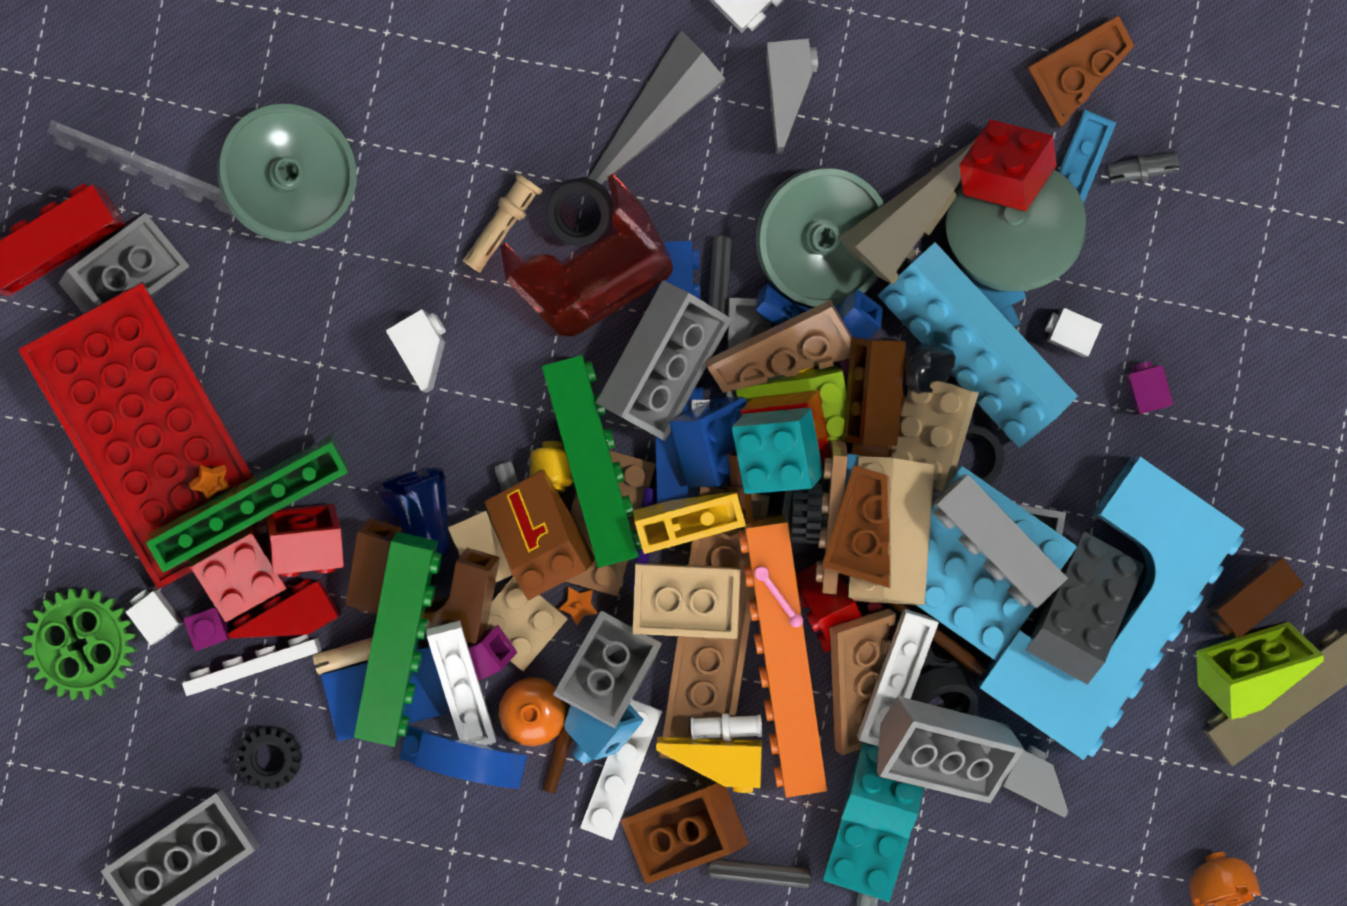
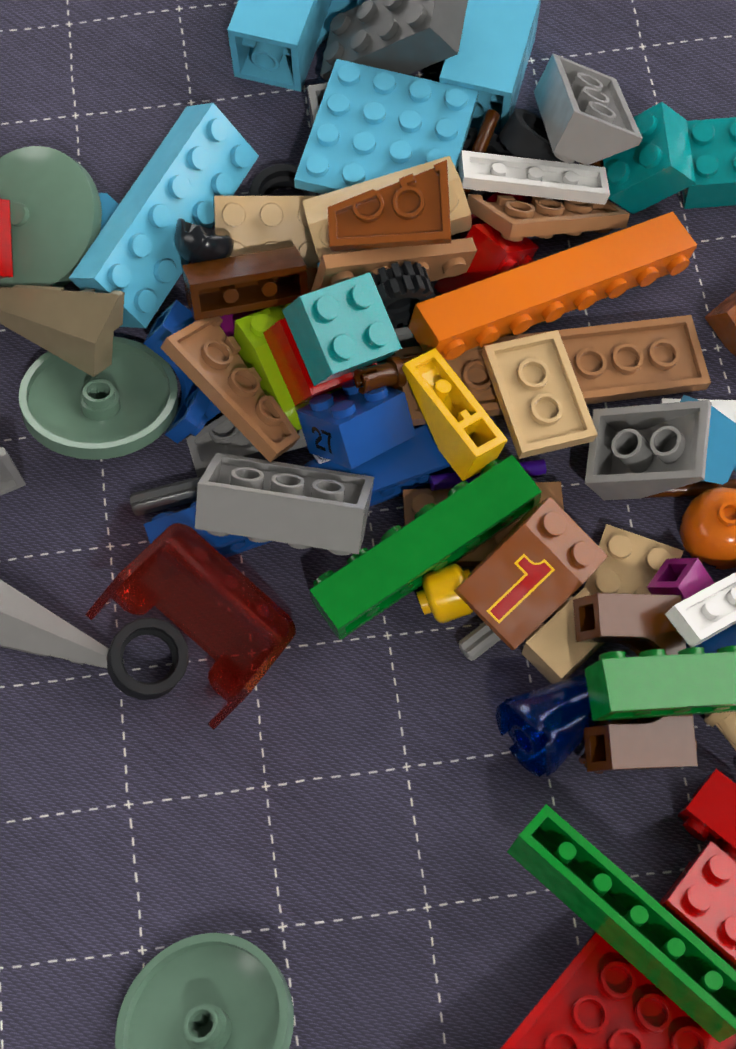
camera: 110 degrees left, 20 degrees down
(210, 481) = (622, 982): orange piece -> none
(304, 540) = (646, 833): brick -> none
(420, 346) = (364, 781): white slope -> none
(510, 209) = (170, 740): tan pin -> none
(578, 604) = (588, 519): orange piece -> none
(725, 762) = (687, 310): yellow slope -> none
(726, 727) = (652, 320): white pin -> none
(762, 574) = (481, 312): bright pink hinge -> none
(999, 540) = (357, 99): light grey brick -> none
(1037, 781) = (578, 40): light grey slope -> none
(1072, 331) = (126, 148): white brick -> none
(1148, 388) = (161, 72): magenta brick -> none

